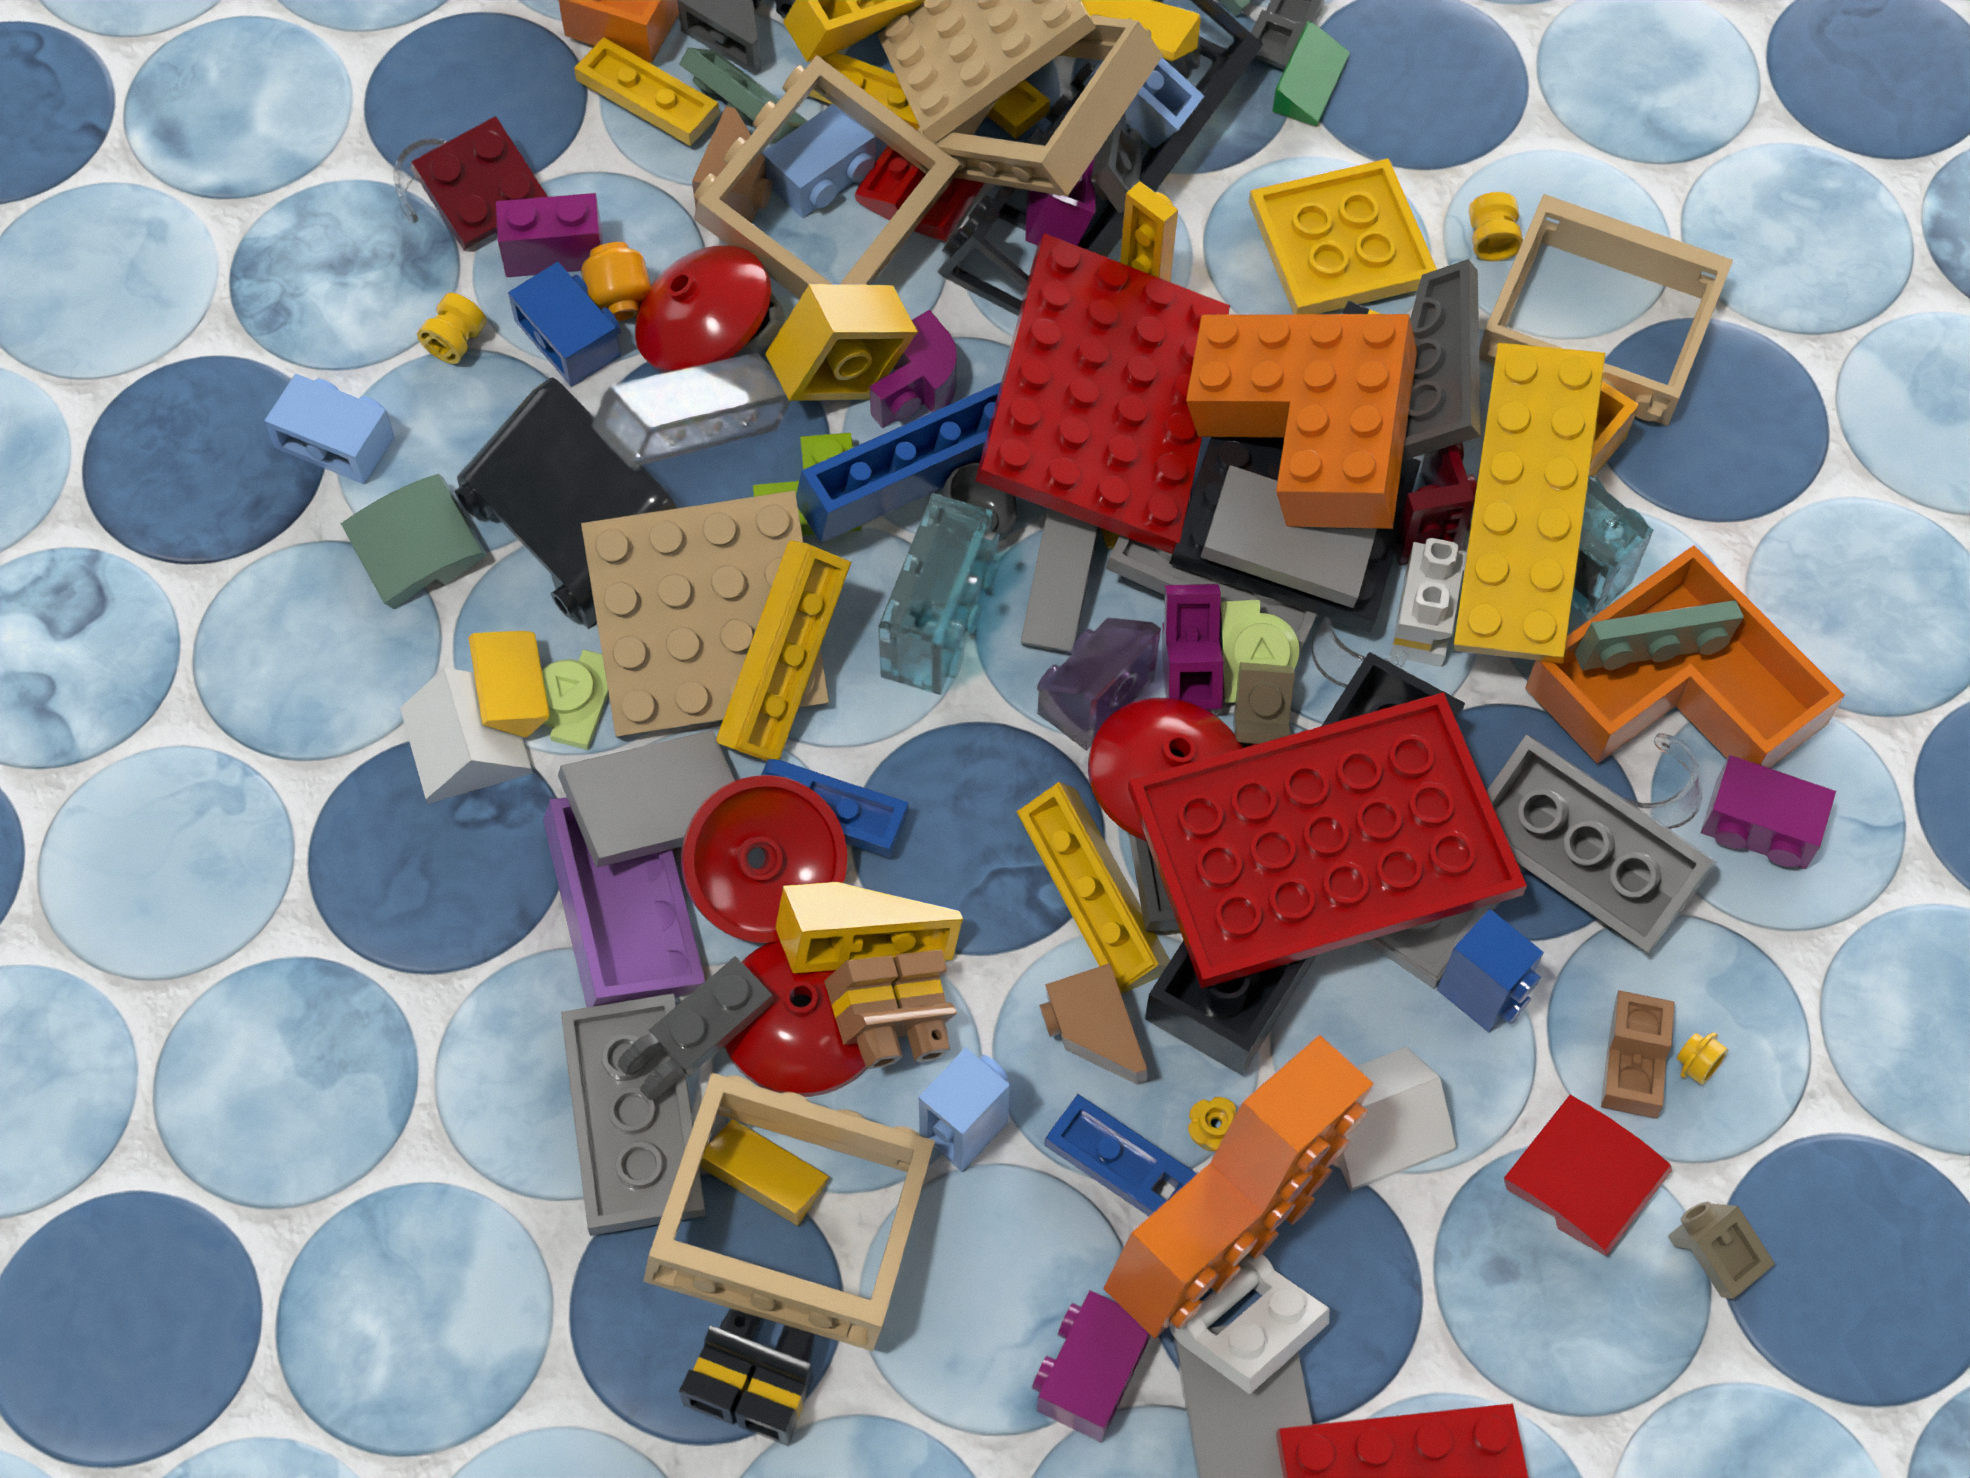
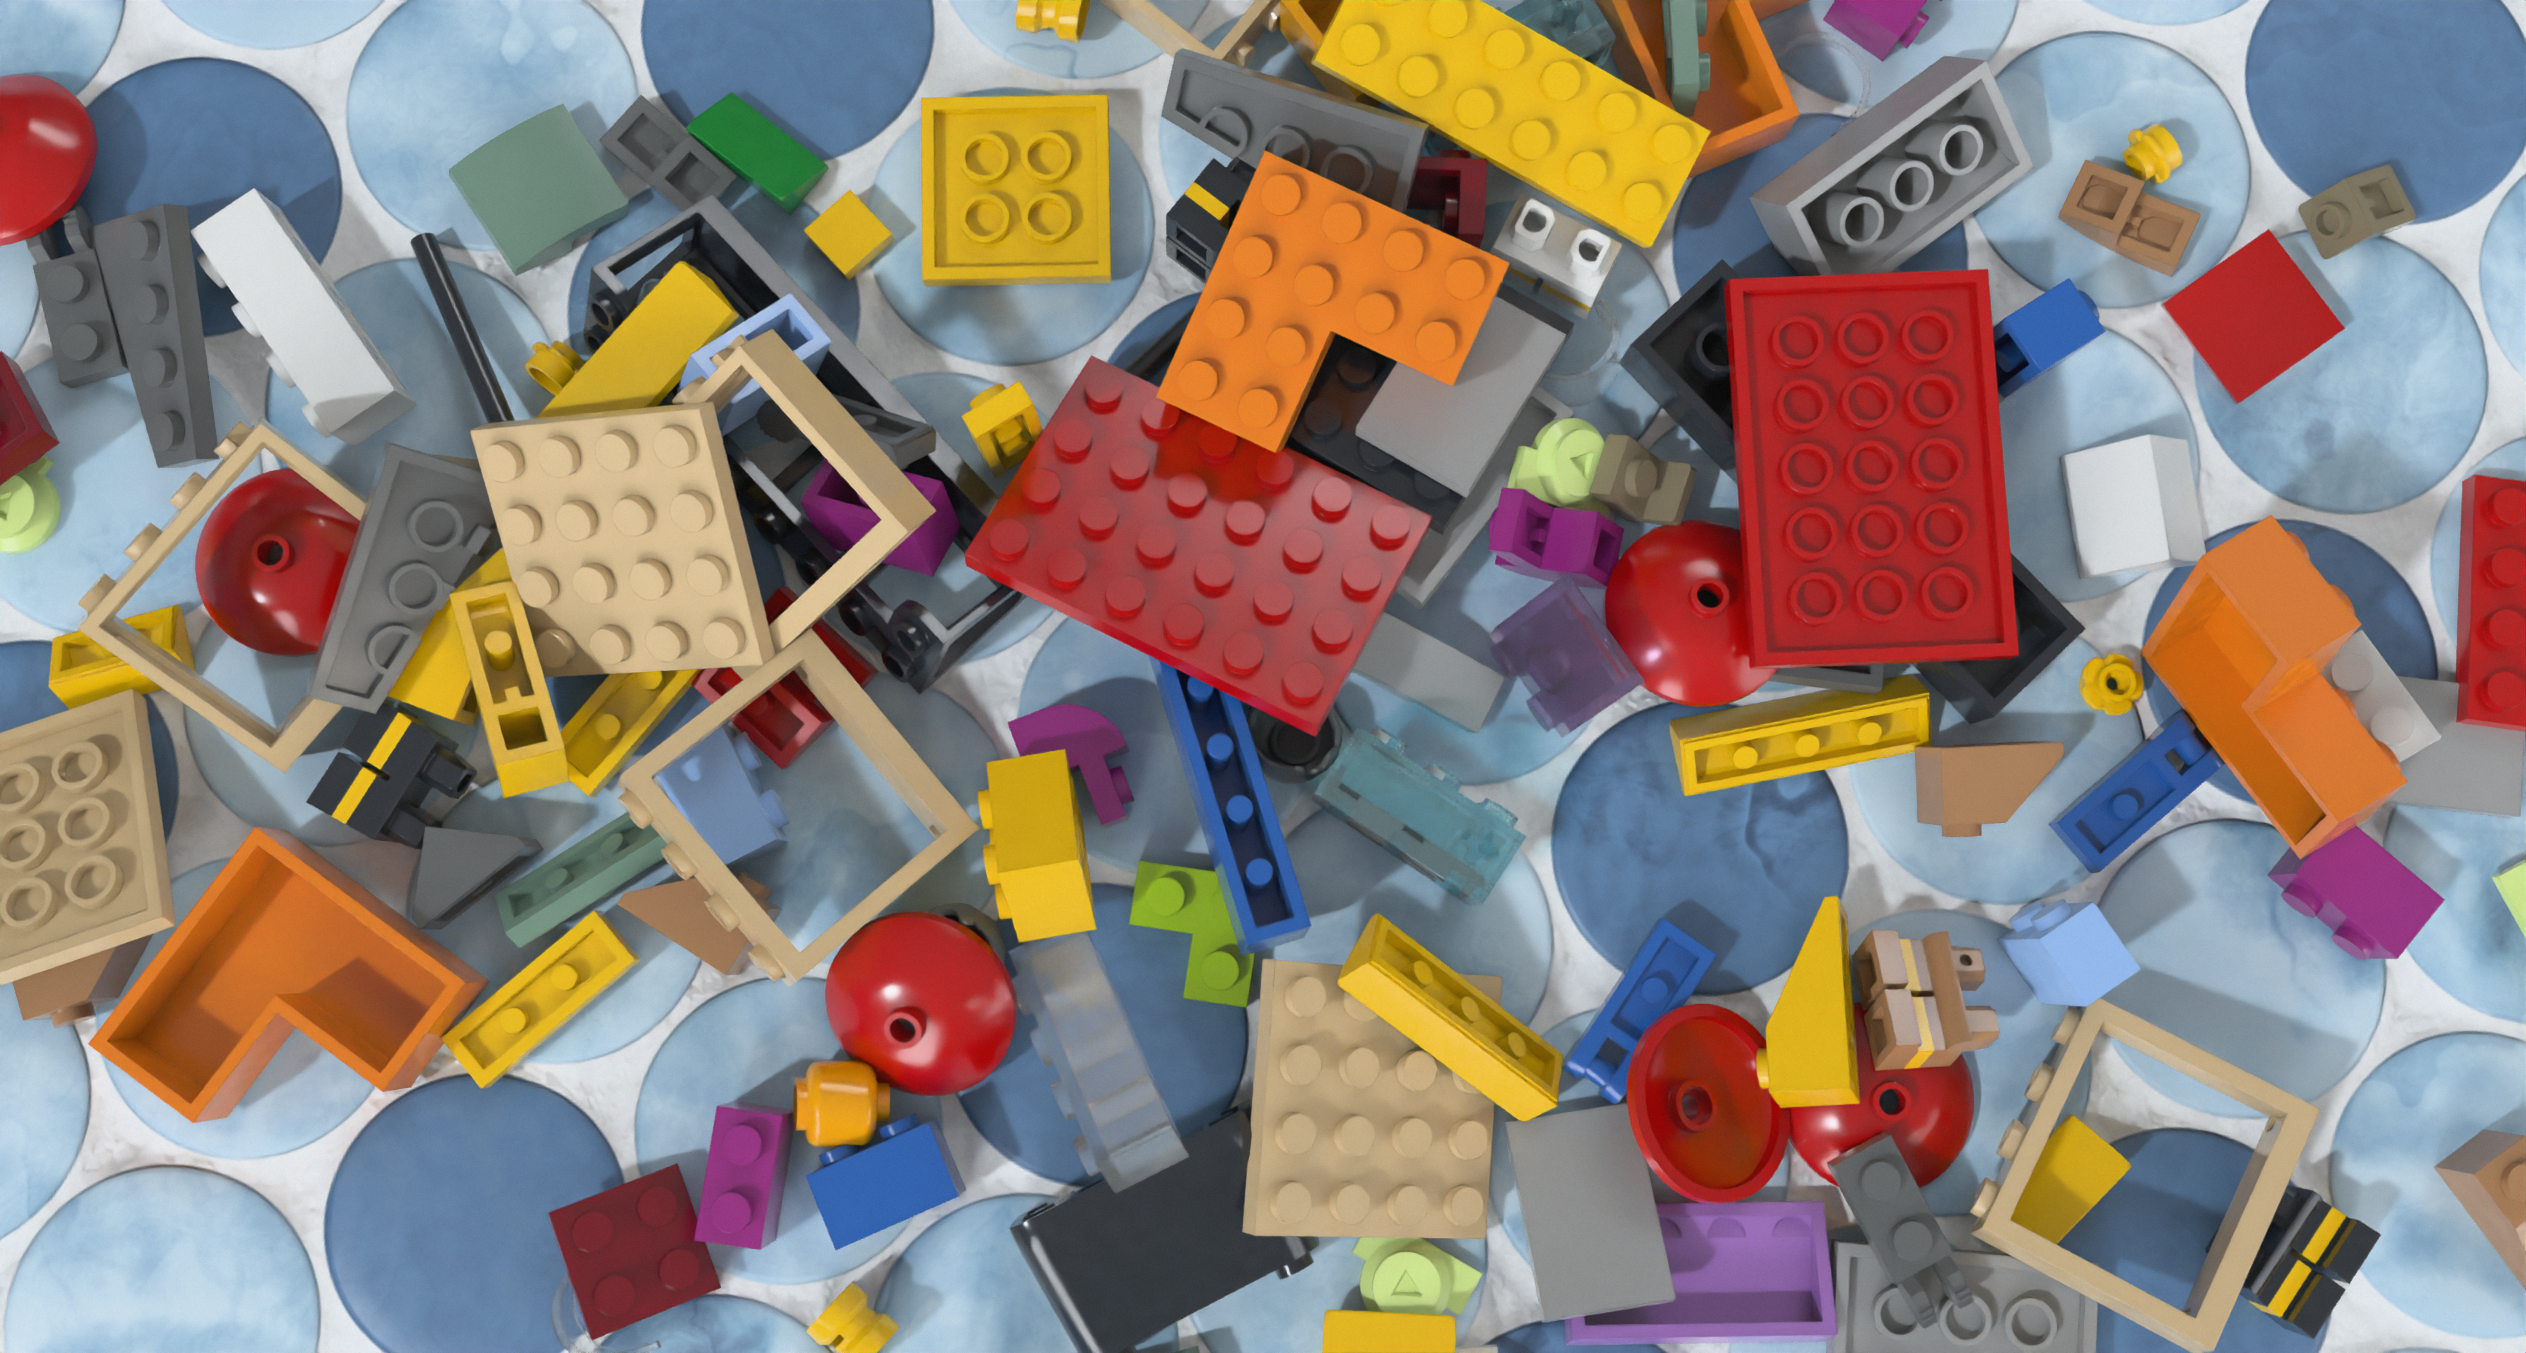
camera: 80 degrees left, 20 degrees up
(1269, 146) = (849, 235): none -> yellow tile

